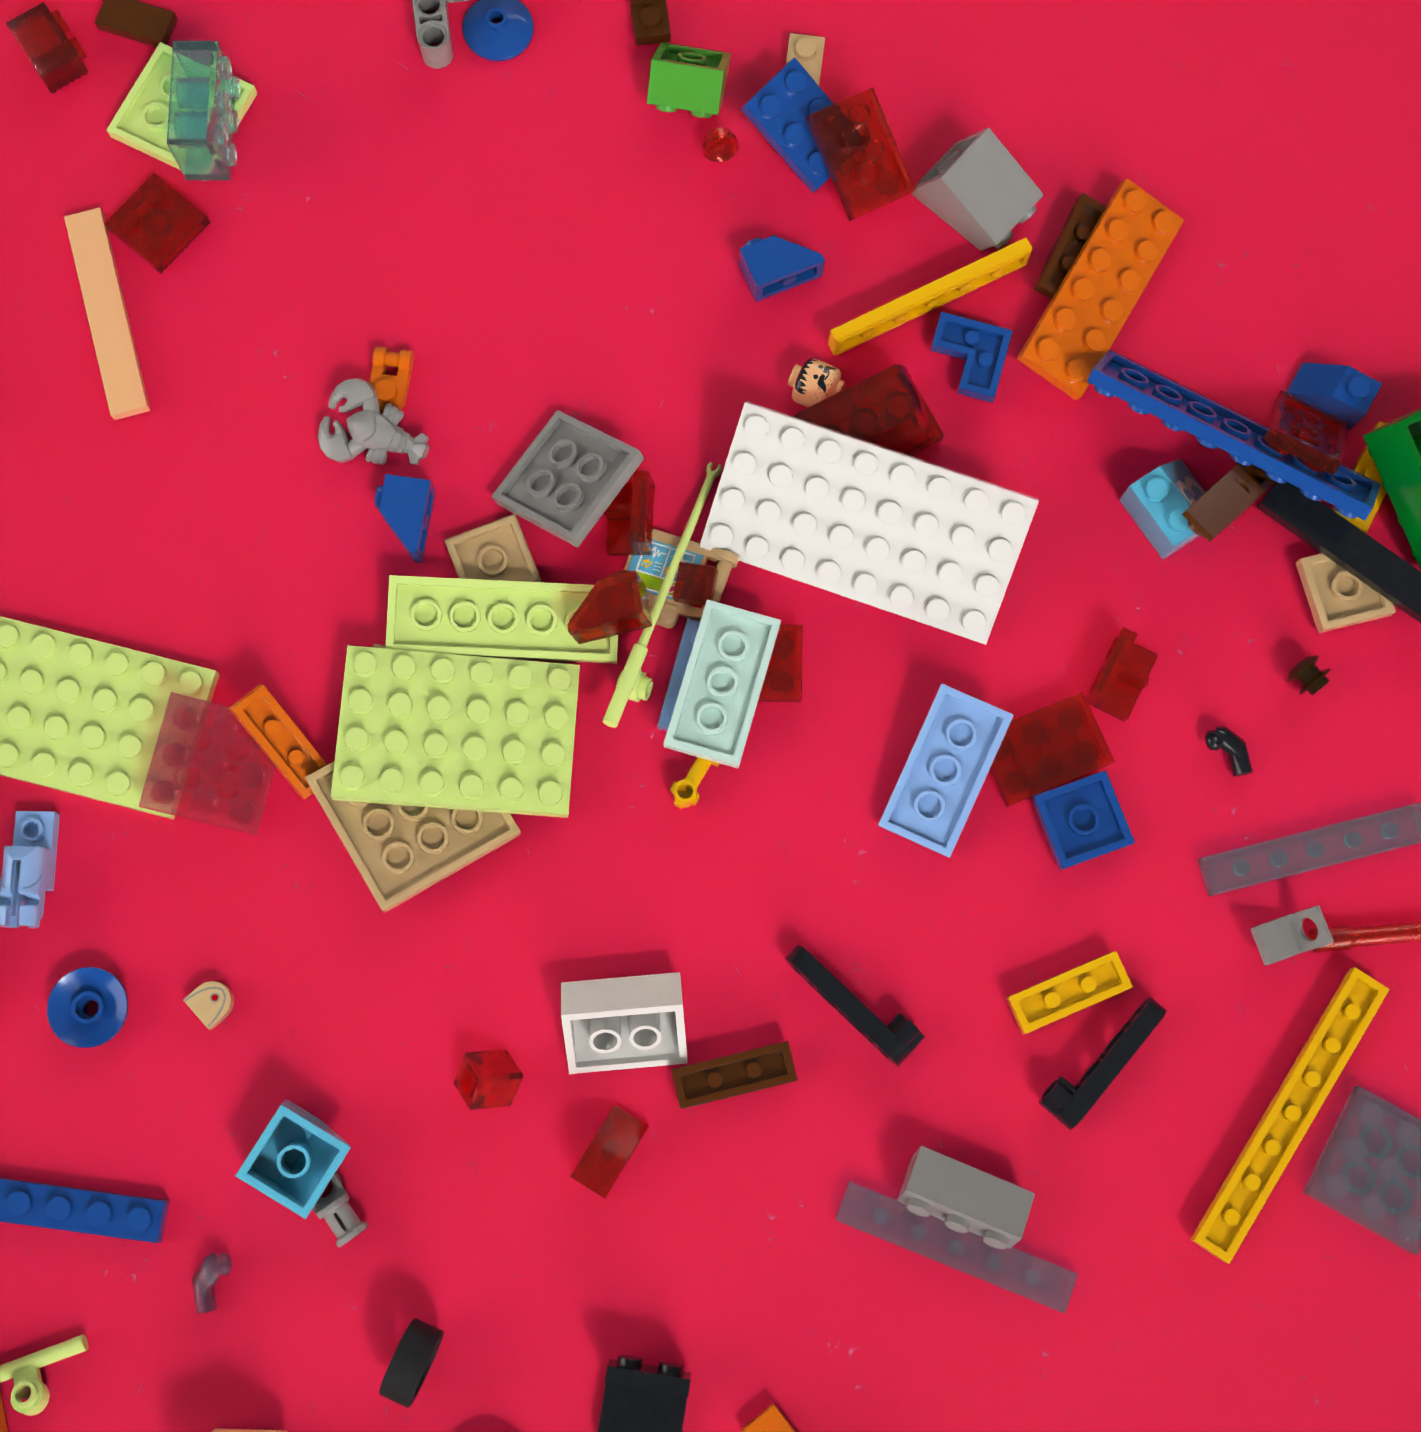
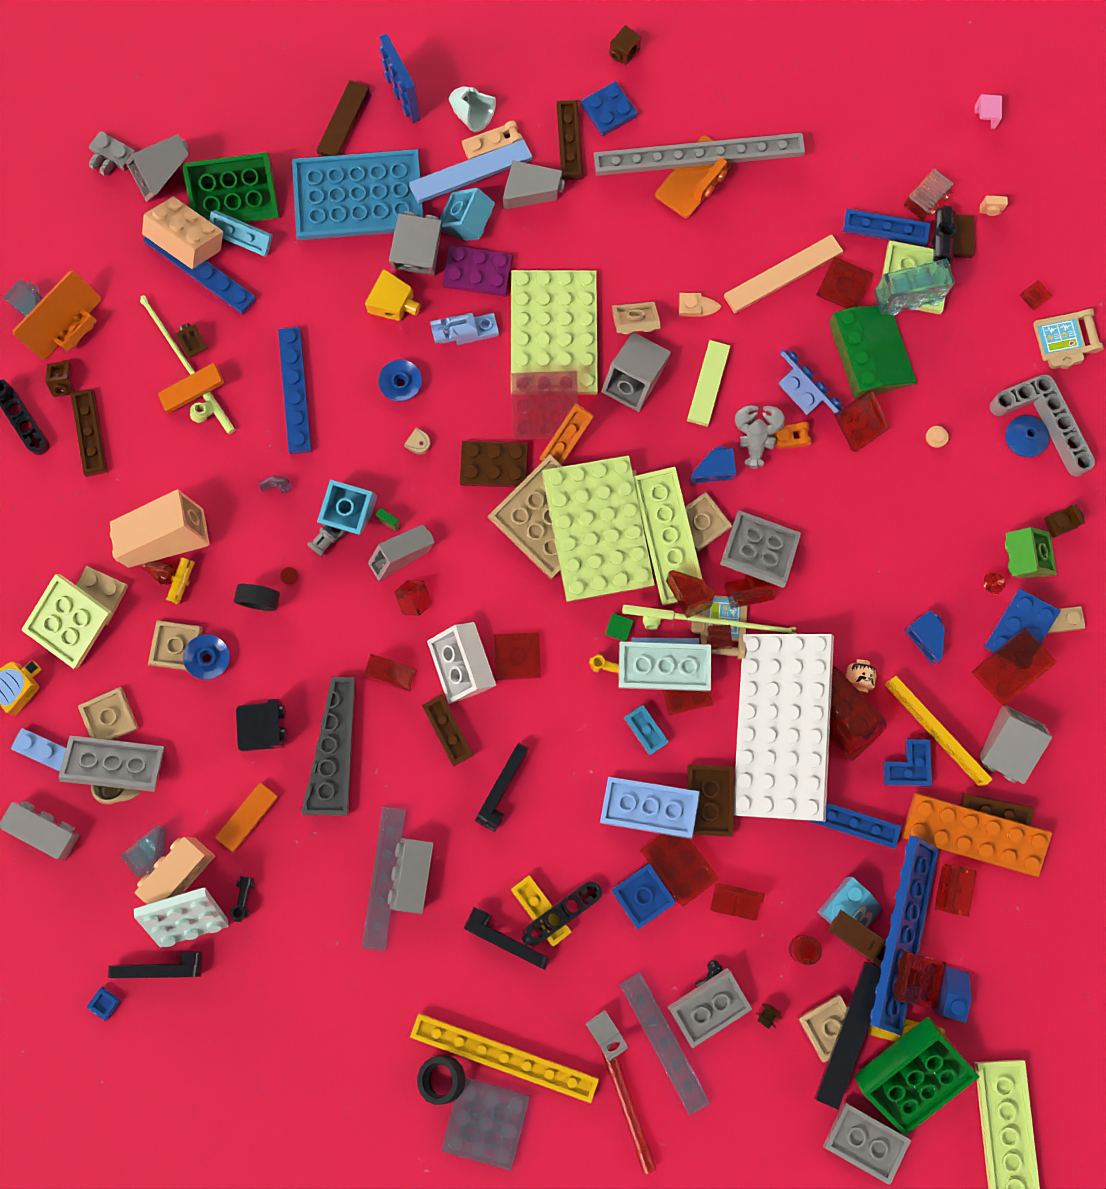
camera: 75 degrees right, 0 degrees up
(81, 129) = (886, 227): none -> blue plate
(105, 569) = (635, 317): none -> tan plate
(115, 468) = (695, 305): none -> light nougat plate
(125, 41) = (944, 234): none -> black piece
(201, 596) = (635, 371): none -> light grey slope
(258, 485) = (708, 383): none -> yellowish green tile
(285, 216) = (871, 350): none -> green slope
(290, 881) = (493, 464): none -> reddish brown plate
(315, 336) = (804, 388): none -> bracket
(336, 1089) = (388, 519): none -> green tile
(385, 1294) = (289, 575): none -> clear red piece
(400, 261) = (862, 421): none -> clear red plate
(400, 1081) = (400, 551): none -> light grey slope
(459, 158) = (936, 436): none -> light nougat plate
(634, 743) = (619, 627): none -> green tile
(637, 925) = (517, 656): none -> clear red plate
(751, 1296) = (331, 768): none -> dark grey wing
(816, 744) = (646, 730): none -> dark azure plate
(961, 662) = (715, 800): none -> reddish brown plate
(1051, 448) = (860, 826): none -> blue plate
(1081, 956) = (563, 913): none -> black beam
(1178, 344) = (955, 890): none -> clear red hinge
(1221, 590) = (805, 949): none -> clear red piece
(1280, 762) = (709, 1008): none -> light grey plate
(1313, 1256) = (424, 1080): none -> black tyre

